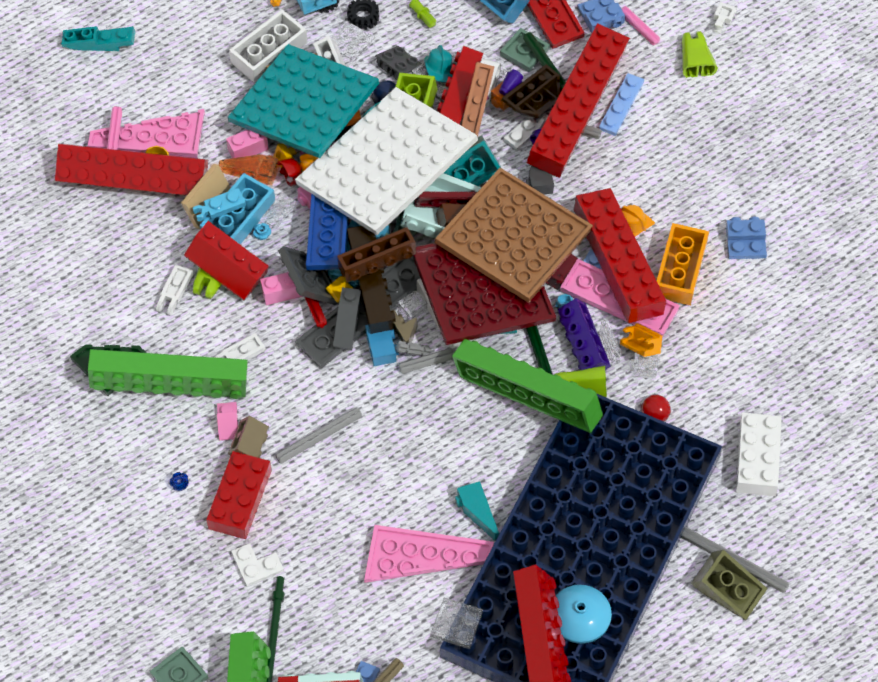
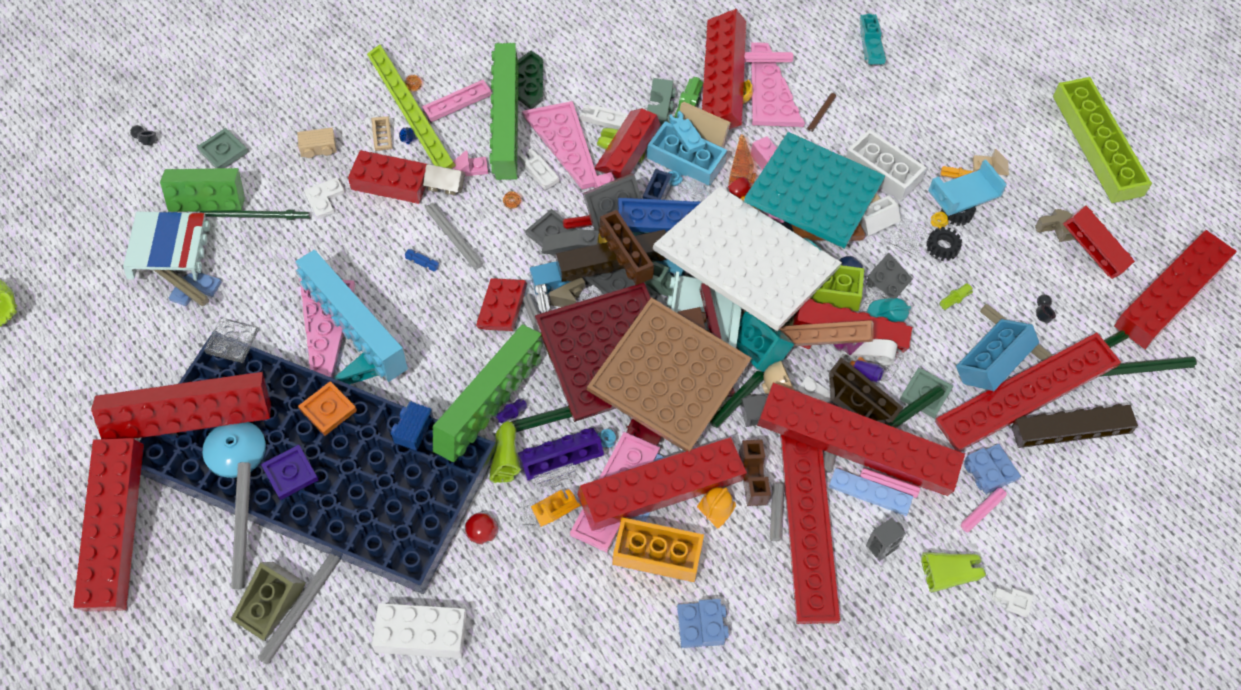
camera: 85 degrees right, 0 degrees up
(100, 473) = (413, 79): none -> clear orange plate
(134, 432) = (456, 100): none -> bright pink plate
(138, 479) = (410, 108): none -> lime plate
(148, 231) = (662, 92): none -> sand green arch
(160, 209) = (691, 93): none -> bright green piece
(171, 515) = (381, 121): none -> tan slope
(180, 572) = (317, 142): none -> tan brick
(197, 328) = (563, 135): none -> bright pink wing
(204, 105) = (821, 112): none -> reddish brown piece
(277, 237) = (658, 185): none -> dark blue brick
(277, 375) = (511, 196): none -> clear orange plate
(334, 10) = (939, 216): none -> yellow plate
(348, 465) = (422, 260): none -> blue axle
(410, 388) = (501, 304): none -> red plate
(431, 512) = (351, 315): none -> medium azure brick
(513, 158) = (776, 374): none -> tan cylinder
(540, 528) = (327, 408): none -> orange plate
(563, 450) = (412, 425): none -> blue brick
(610, 557) = (289, 472): none -> dark purple plate
(613, 88) = (890, 482): none -> bright pink axle
(622, 184) = (755, 484): none -> reddish brown arch
(639, 175) = (776, 512): none -> light grey axle
(659, 152) = (809, 534): none -> red plate
(661, 602) = (240, 525): none -> light grey axle
(674, 93) = (885, 539): none -> dark grey brick

